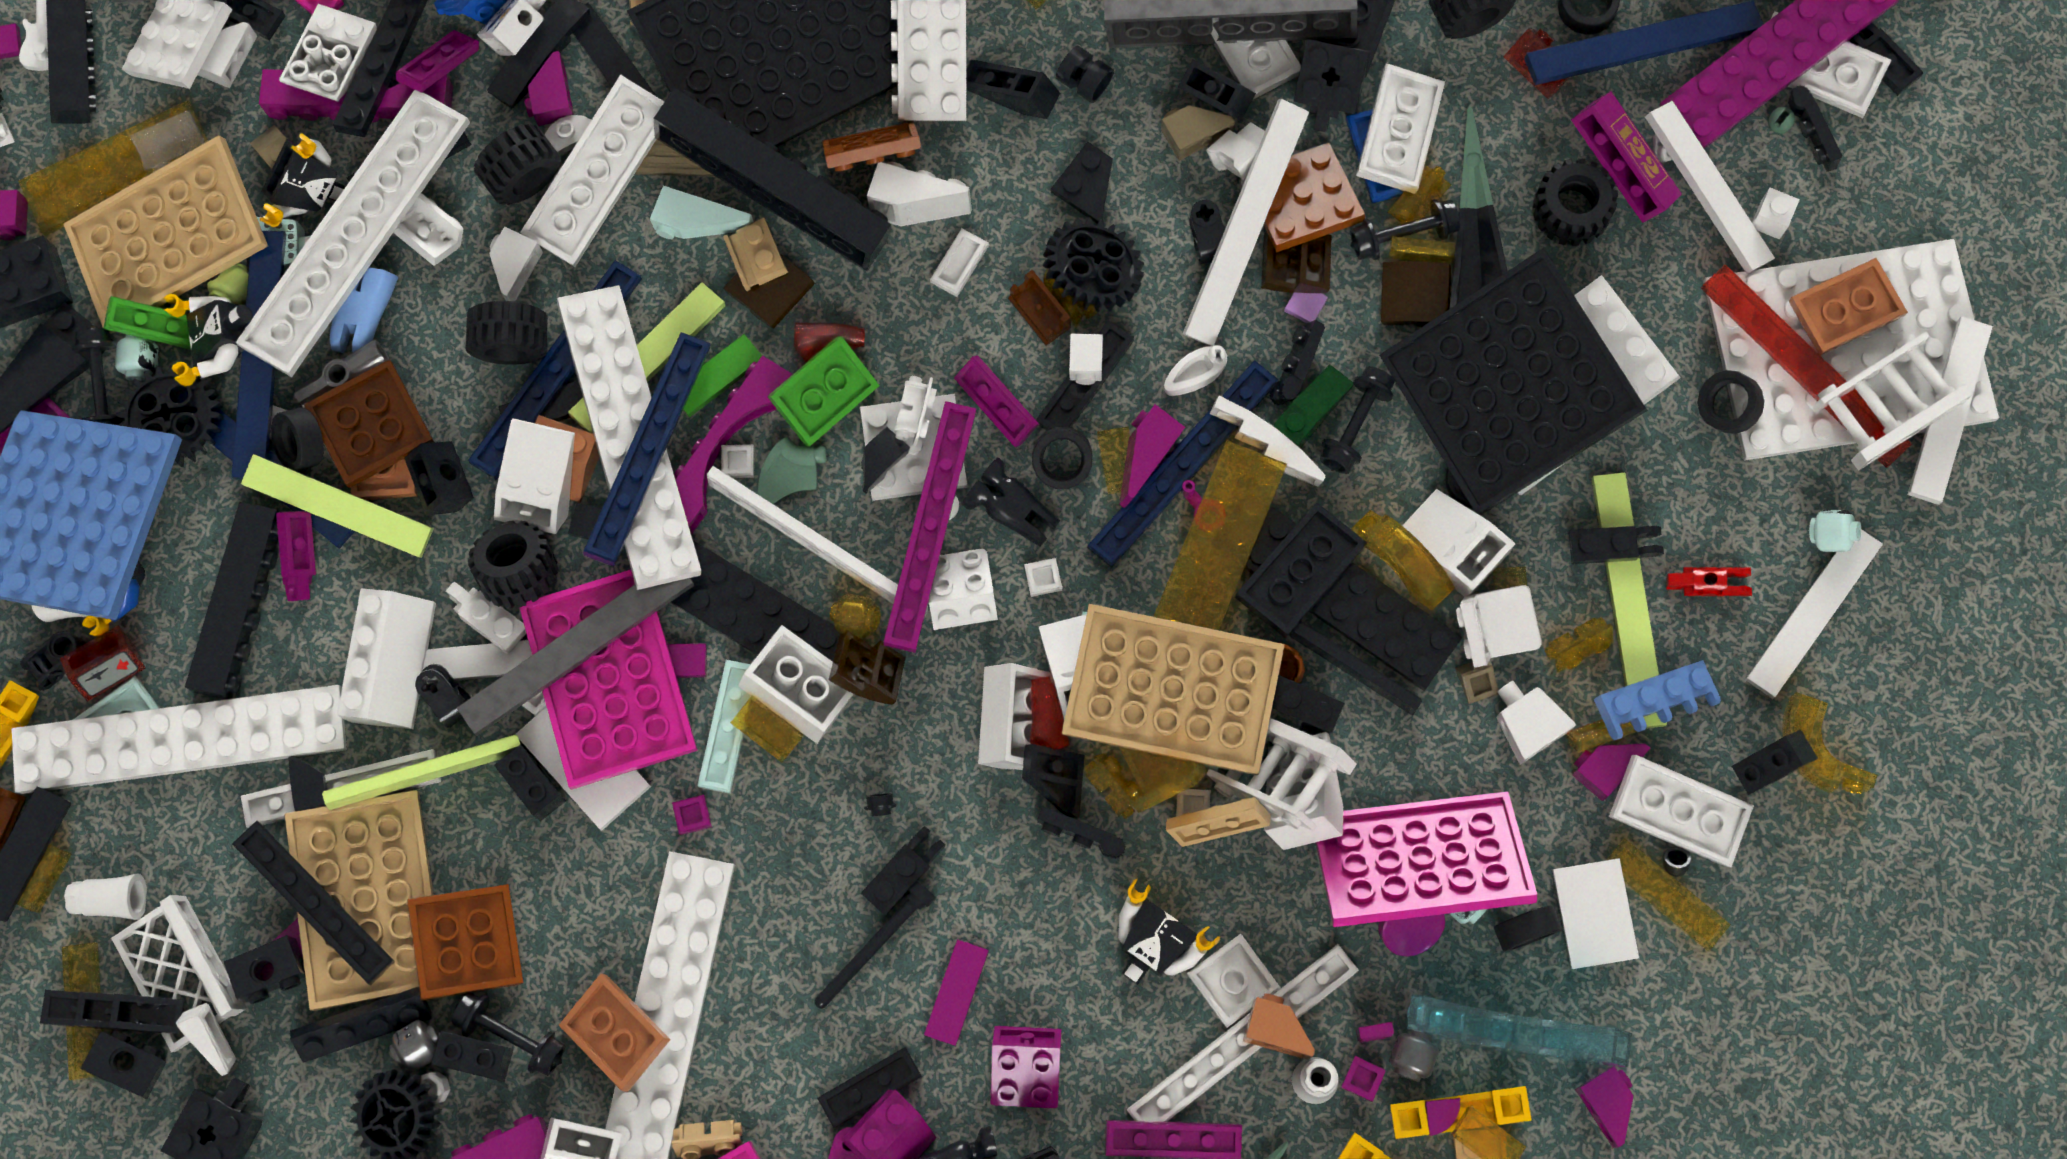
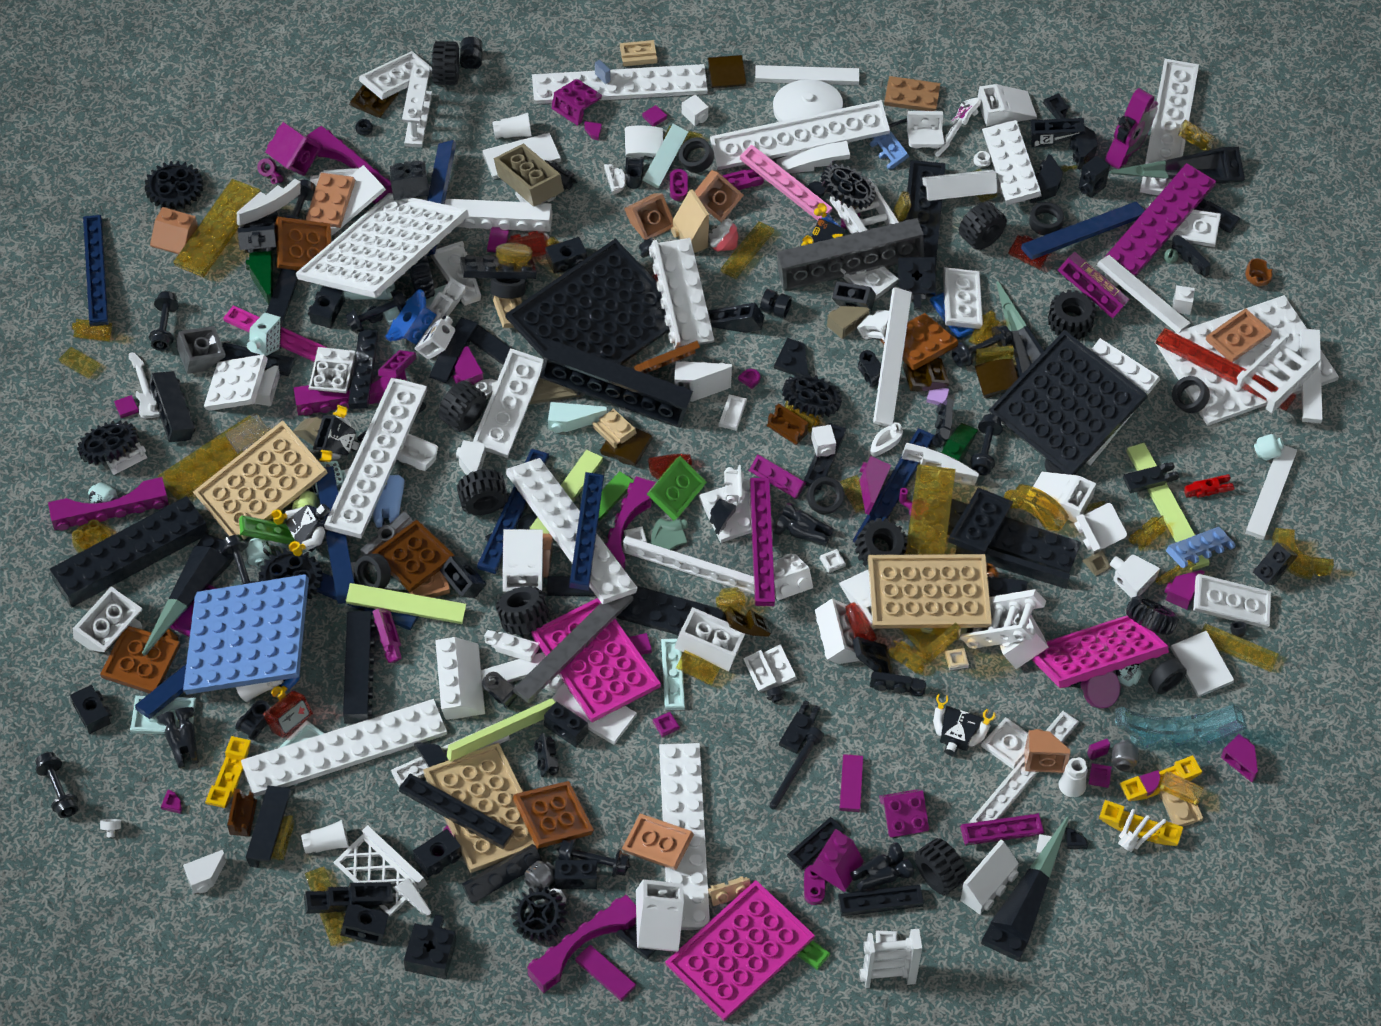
camera: 20 degrees left, 20 degrees down
(487, 815) = (545, 747): none -> black hinge
(885, 753) = (770, 668): none -> white slope
(1006, 203) = (750, 378): none -> magenta tile
(1153, 572) = (884, 530): none -> black tyre
(1218, 822) = (975, 656): tan plate -> none
(1535, 813) = (1152, 615): none -> black gear
(1925, 178) = (1258, 268): none -> dark orange hair

